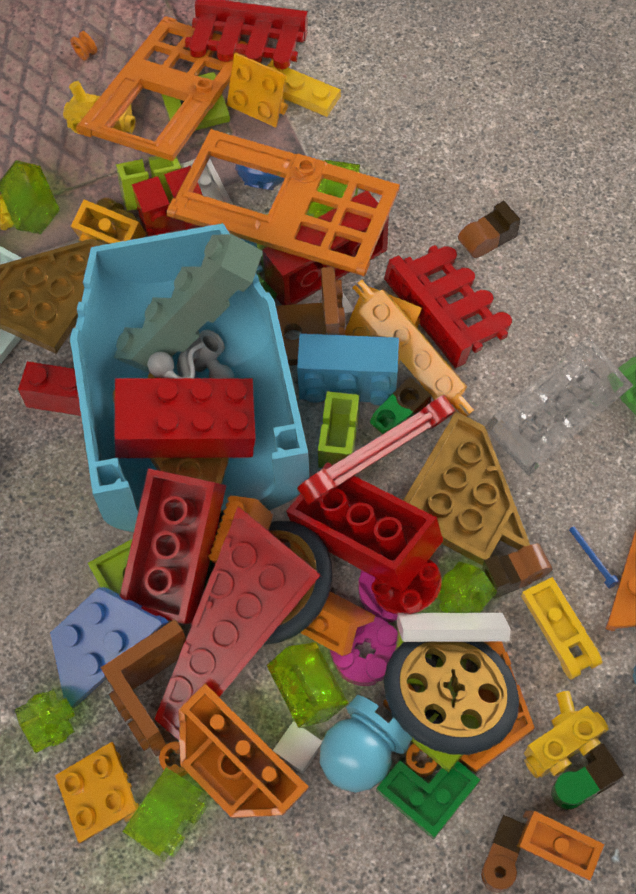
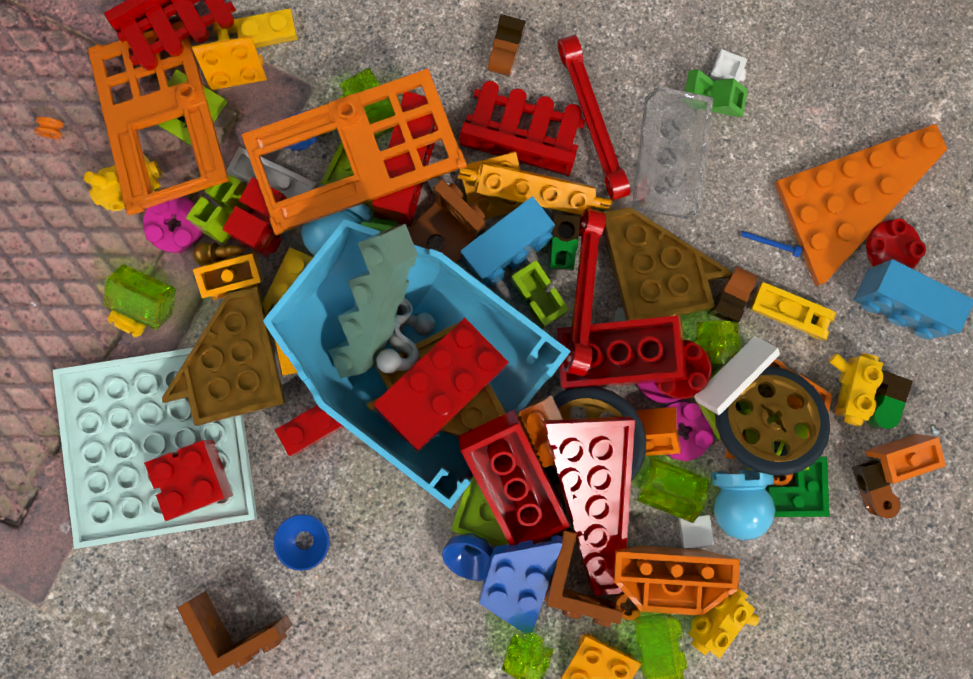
camera: 50 degrees left, 20 degrees up
(75, 585) = (465, 560): none -> blue piece
(93, 162) = (159, 232): none -> dark pink plate
(250, 842) = (721, 624): none -> yellow brick
(494, 386) = (614, 176): none -> red piece

